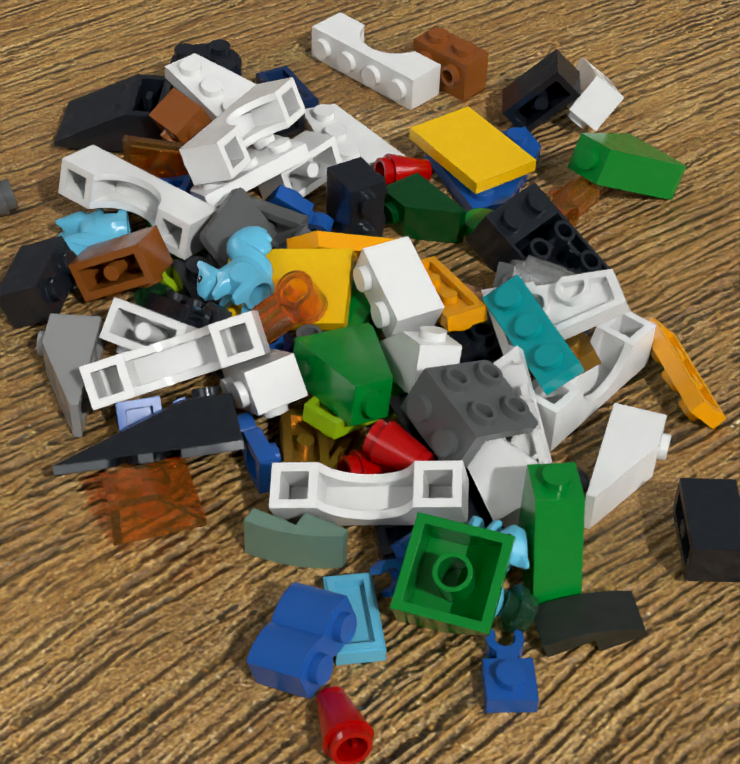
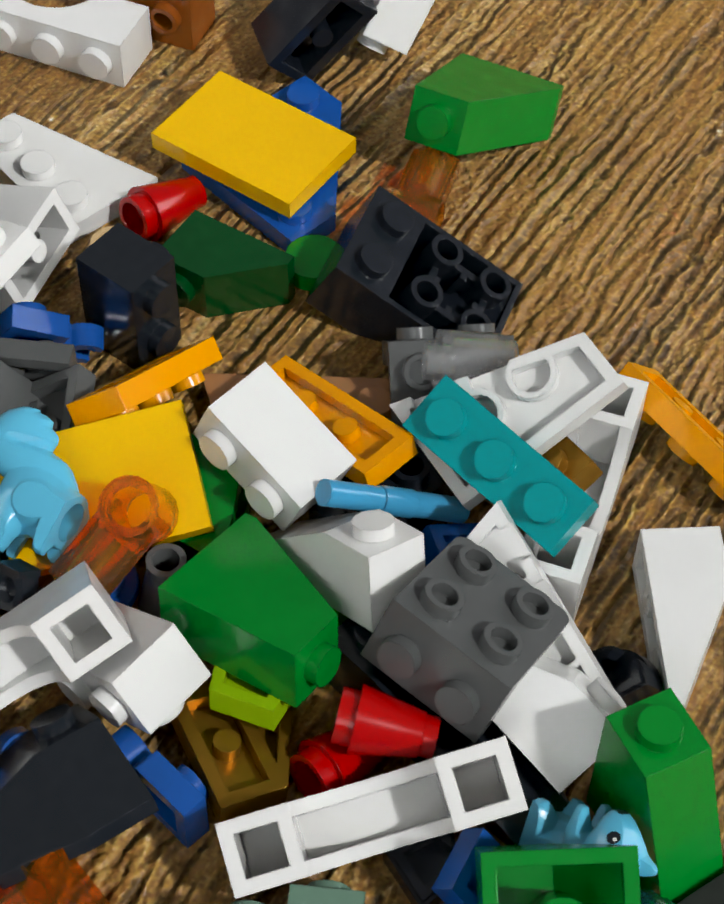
camera: 20 degrees left, 10 degrees up
(469, 343) = (394, 500): none -> dark azure piece

